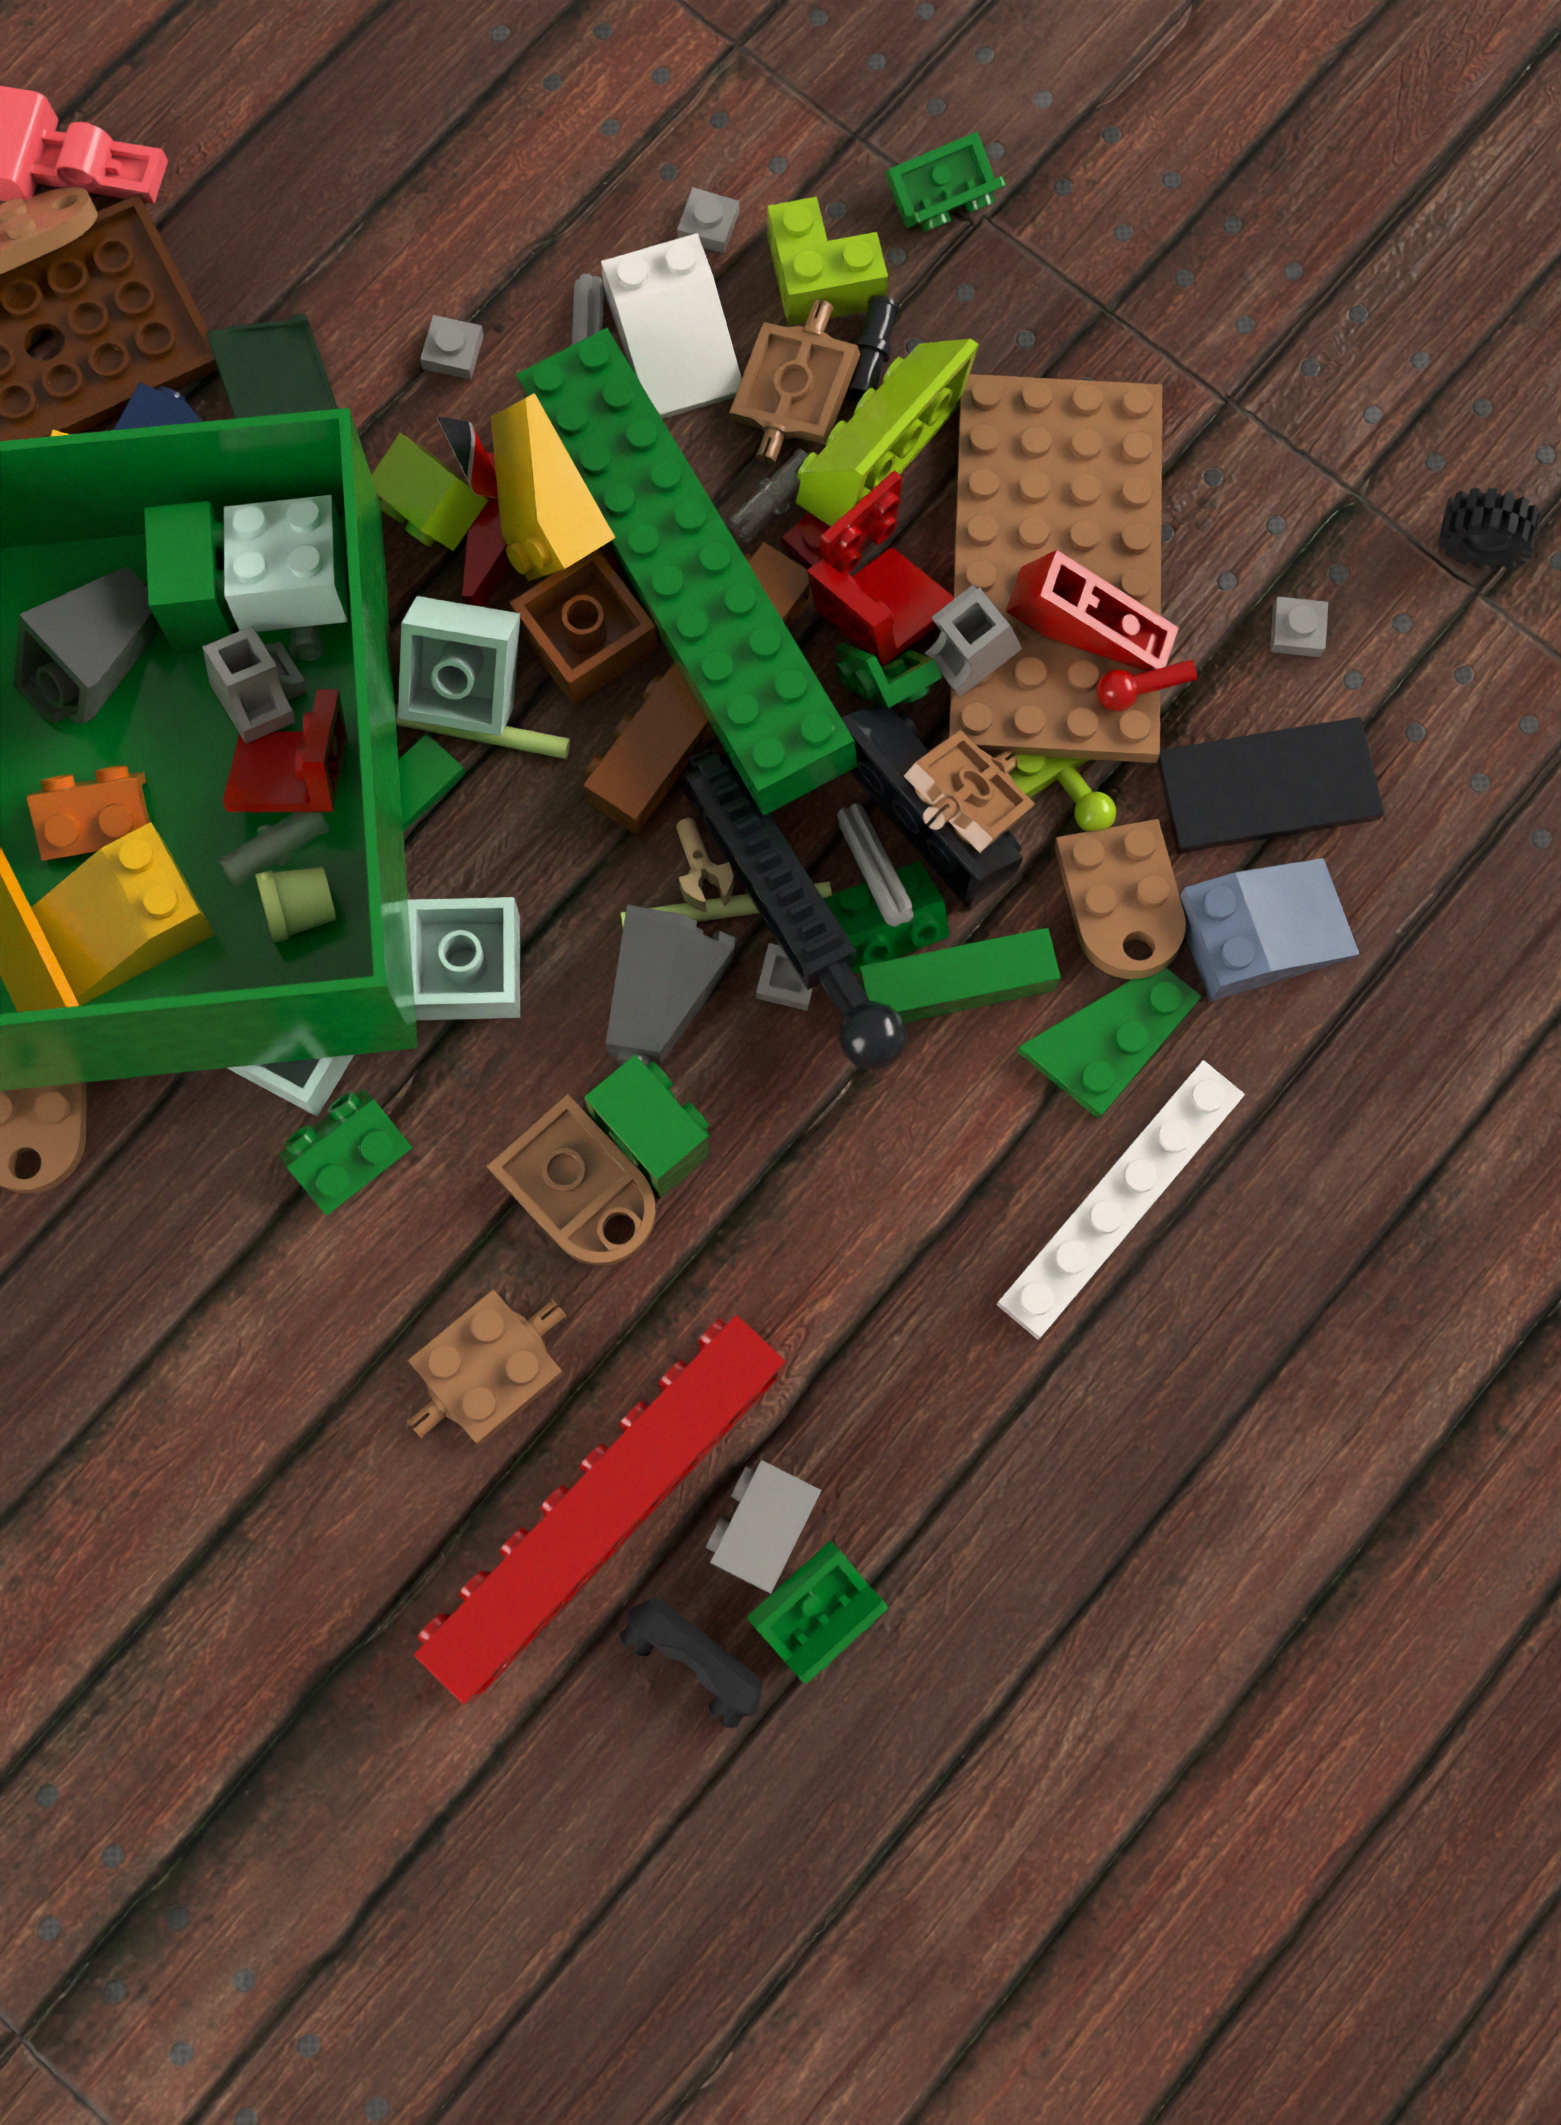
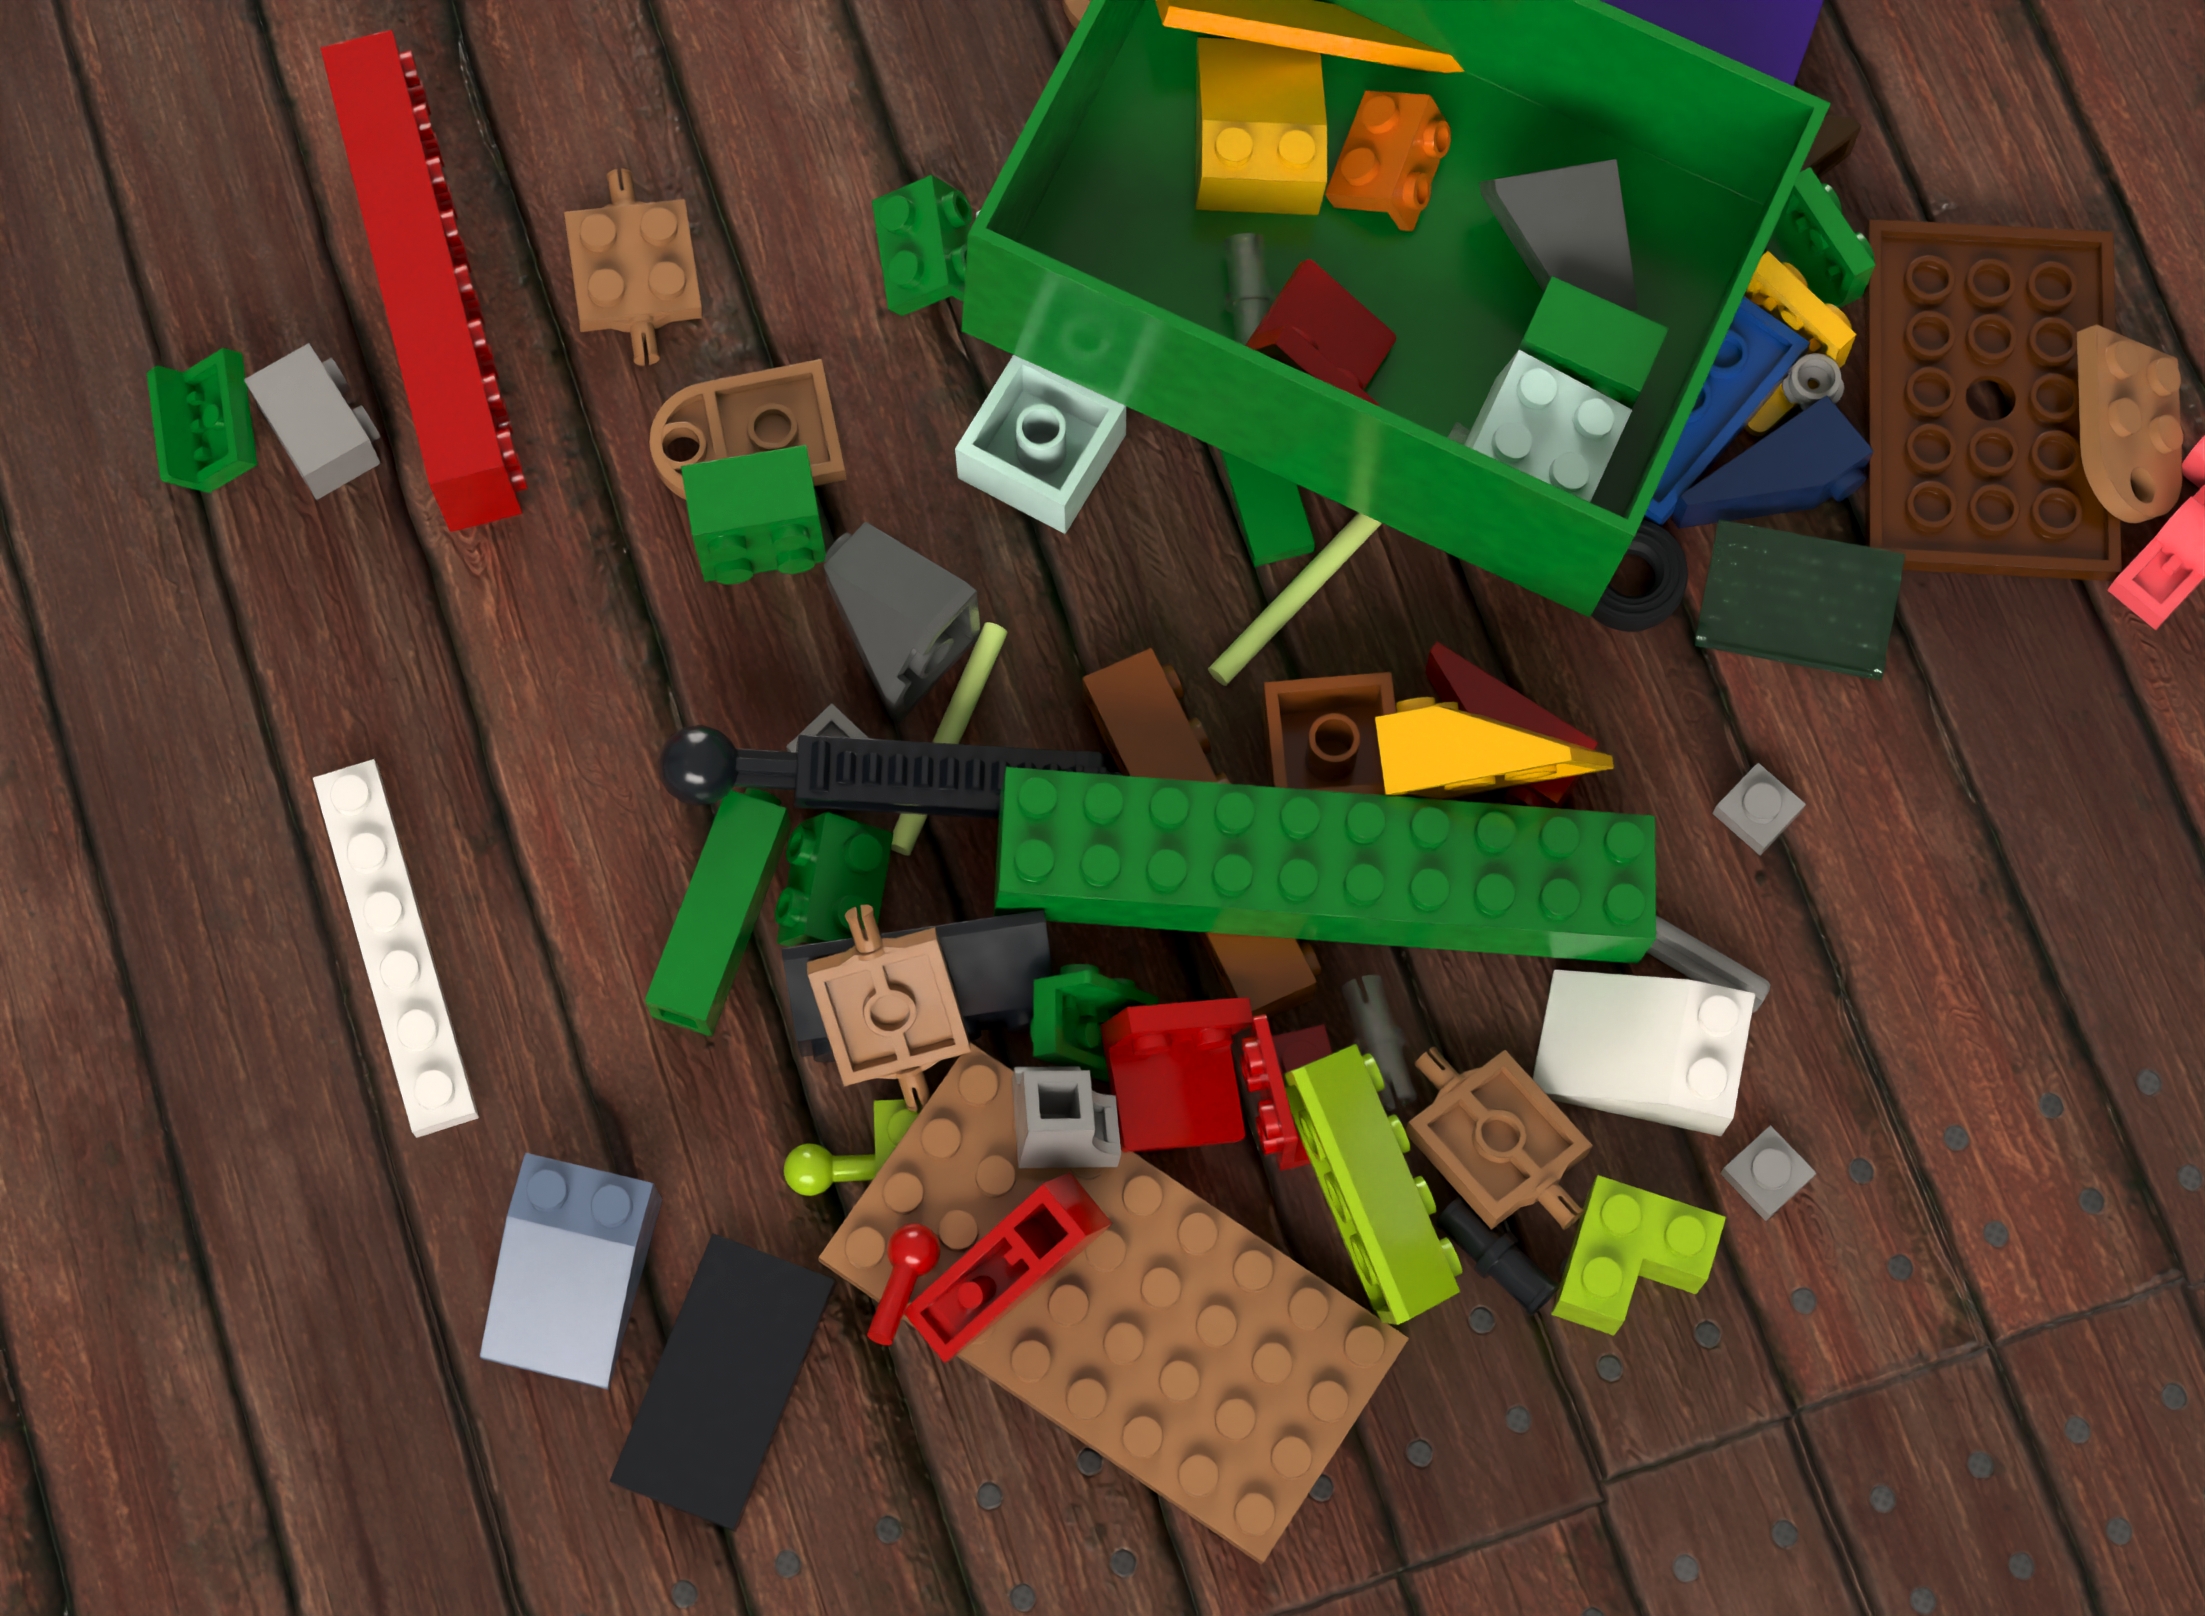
camera: 125 degrees right, 5 degrees down
(253, 682) = (1437, 364): light grey brick -> none
(295, 901) = (1175, 273): yellowish green piece -> none
(425, 493) = (1577, 667): lime brick -> none
(458, 665) = (1356, 593): light aqua brick -> none
(471, 456) = (1588, 721): sticker -> none
(660, 1626) = (233, 303): black piece -> none
(701, 868) = (998, 728): tan bar -> none
(875, 865) = (883, 888): light grey axle -> none
(943, 181) = (1660, 1462): green bracket -> none
(1111, 1039) = (560, 1039): green wing -> none
(1122, 892) = (704, 1140): medium nougat plate -> none
(1299, 627) = (882, 1536): light grey plate -> none

